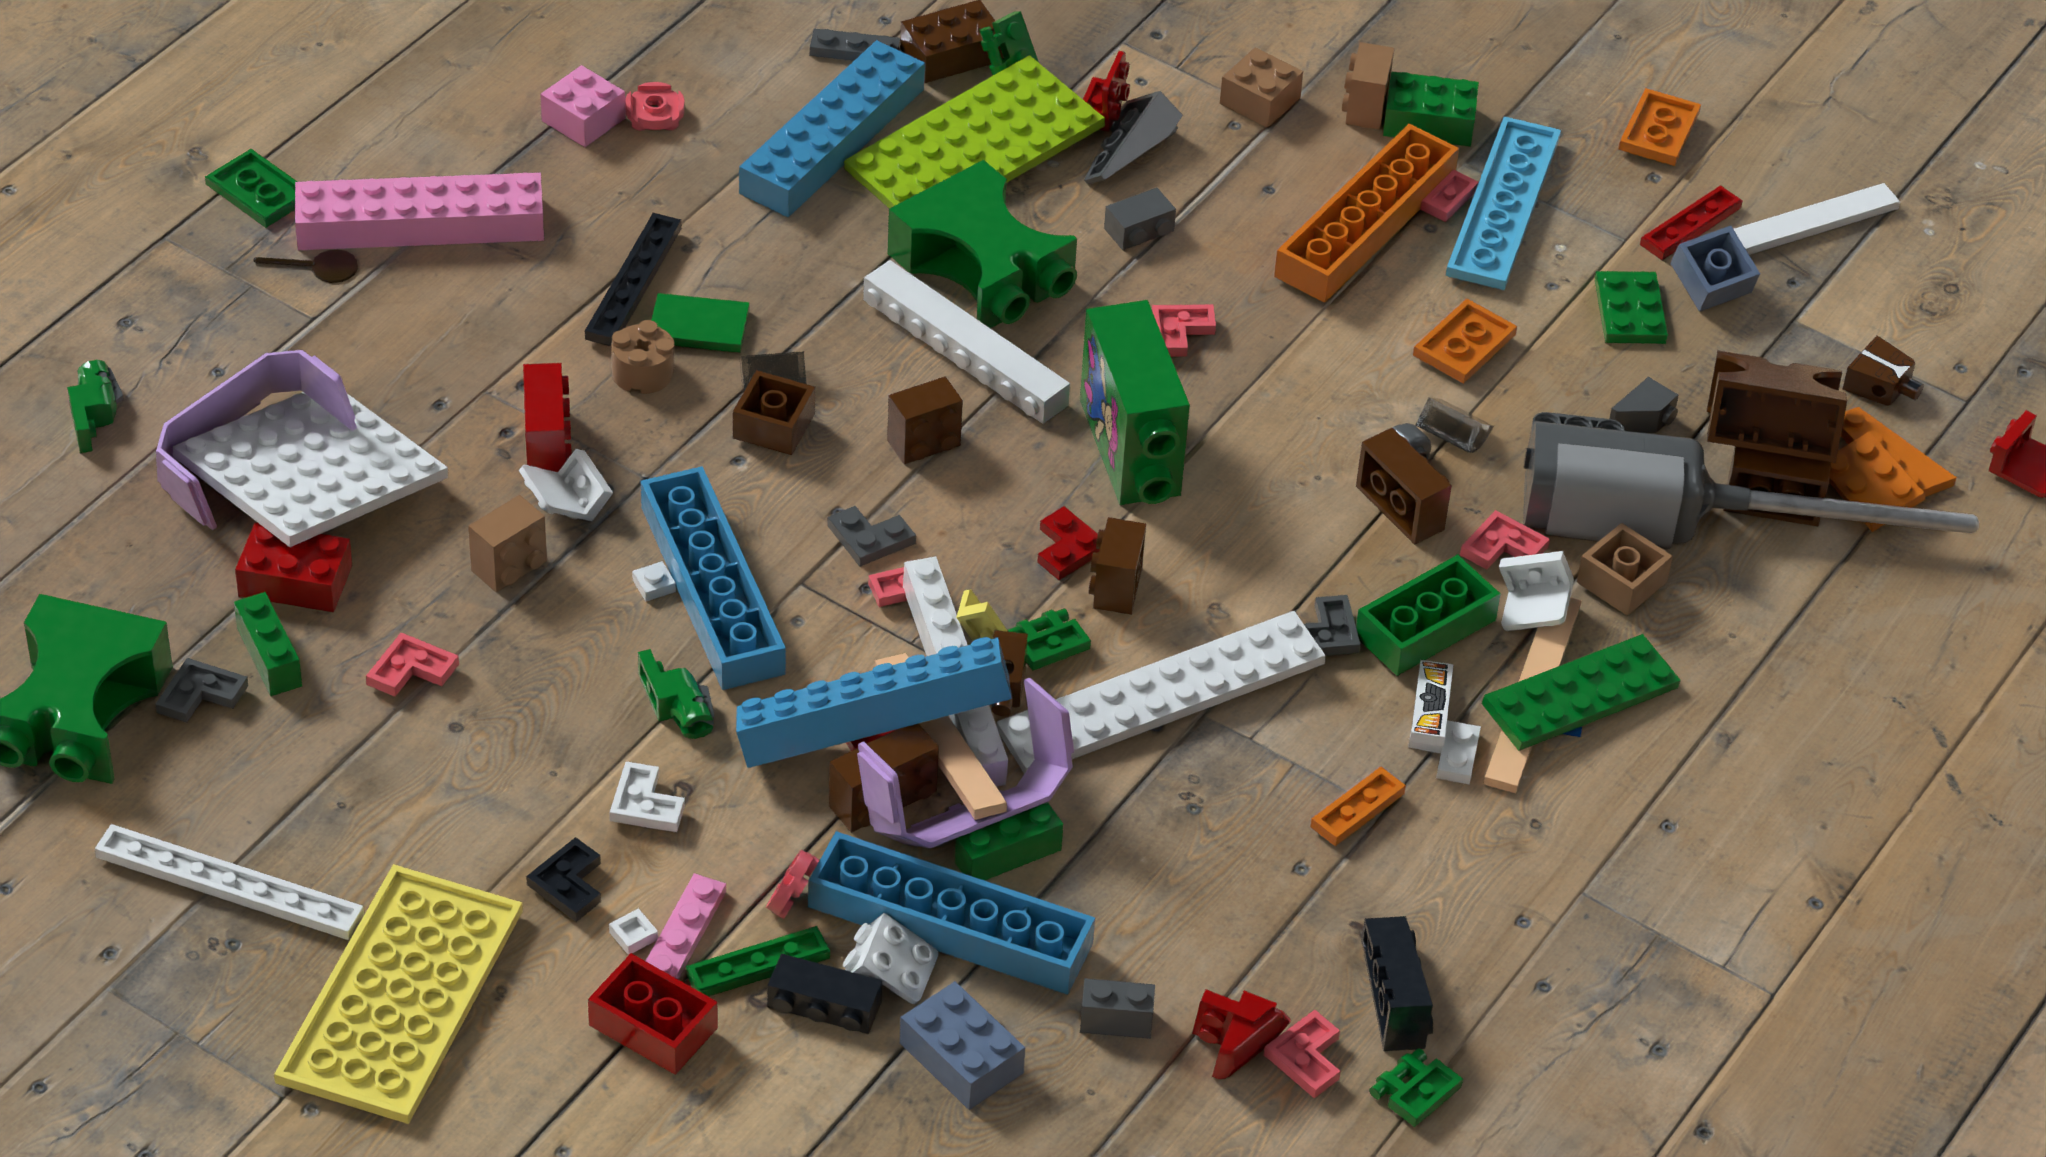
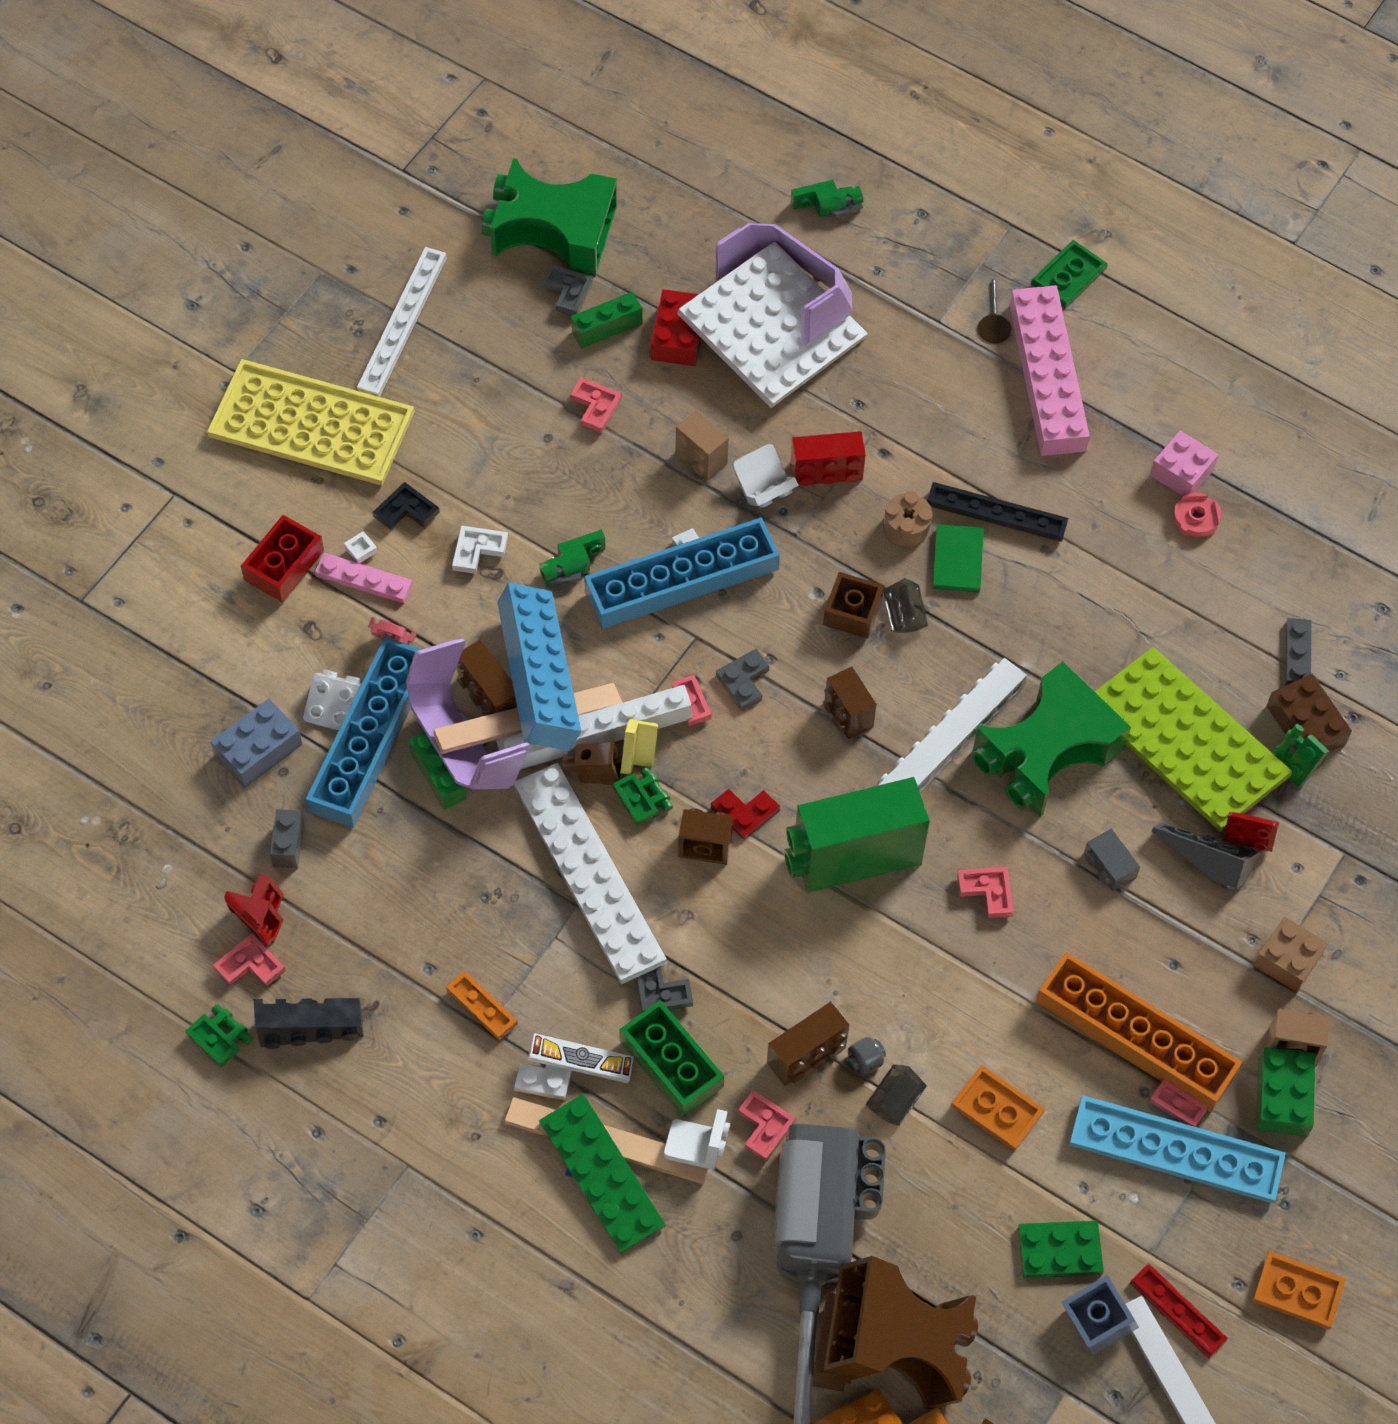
camera: 90 degrees right, 15 degrees up
(755, 961) = (338, 624): green tile -> none
(824, 993) = (303, 659): black brick -> none
(831, 128) = (1187, 635): dark azure brick -> none
(1624, 569) = (731, 1211): medium nougat brick -> none
(1646, 408) = (928, 1246): dark grey slope -> none

